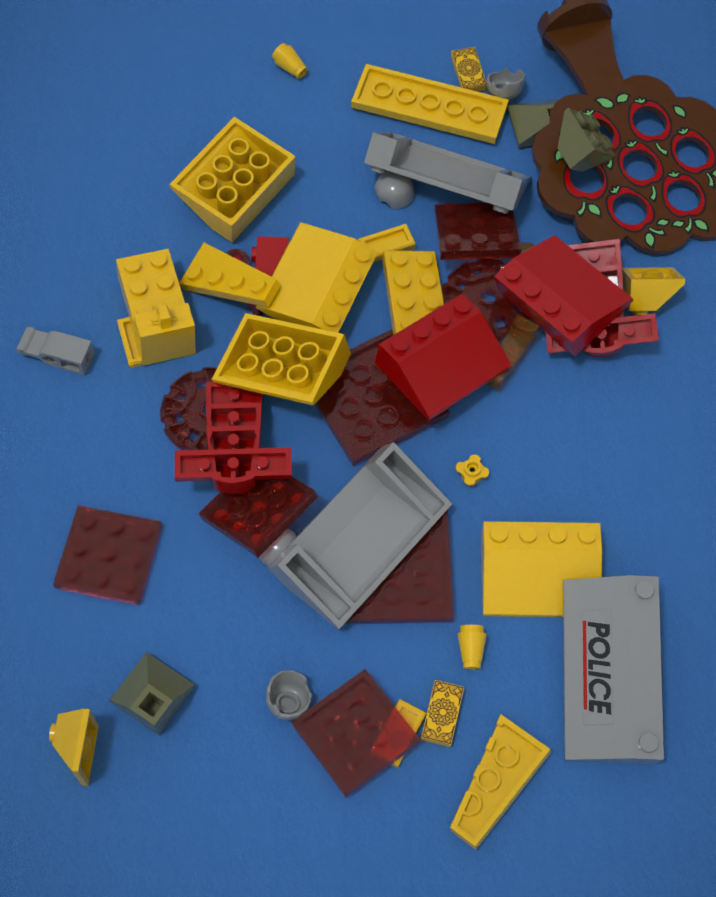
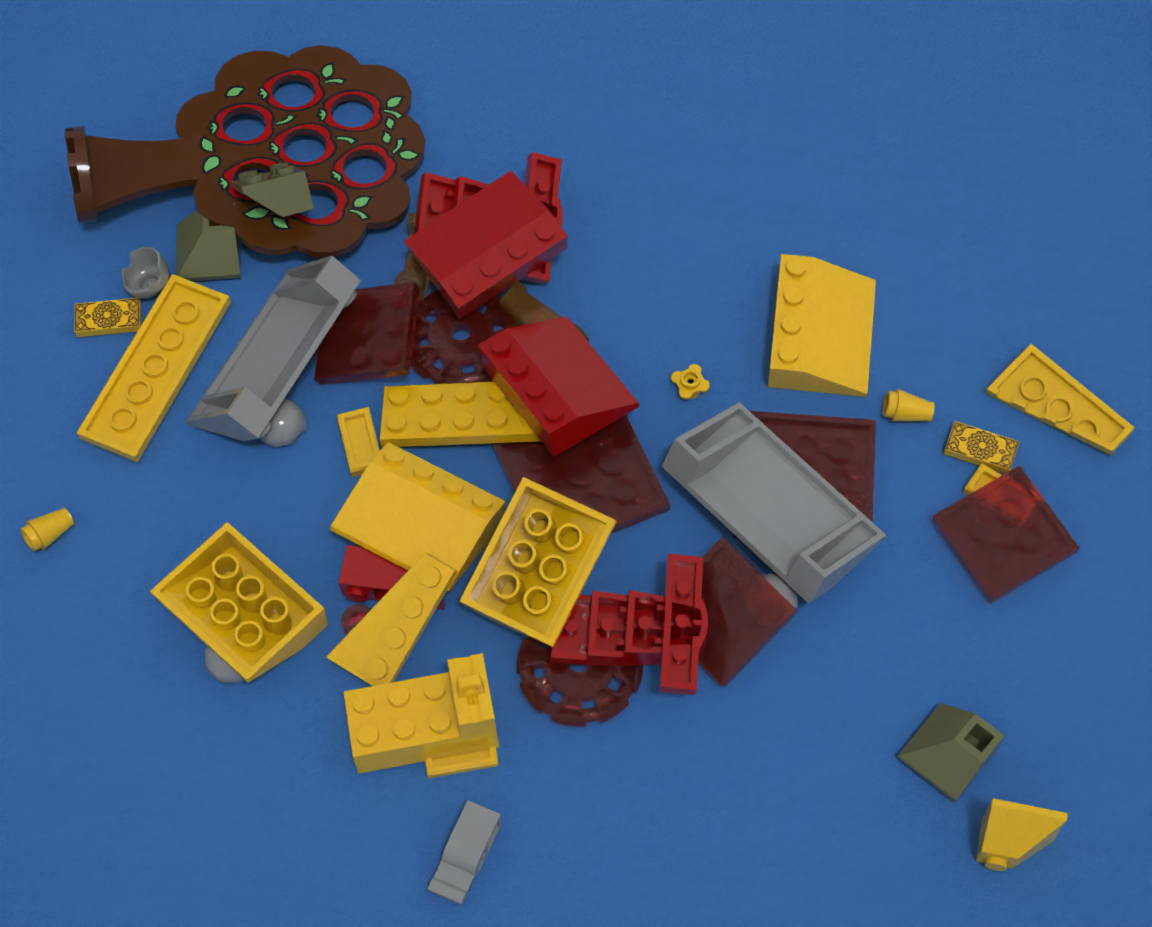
camera: 80 degrees left, 0 degrees up
(108, 555) = (764, 799): clear red plate -> none
(288, 695) = (962, 599): light grey hair -> none
(612, 670) = (946, 270): light grey slope -> none
(650, 287) = (474, 155): yellow slope -> none

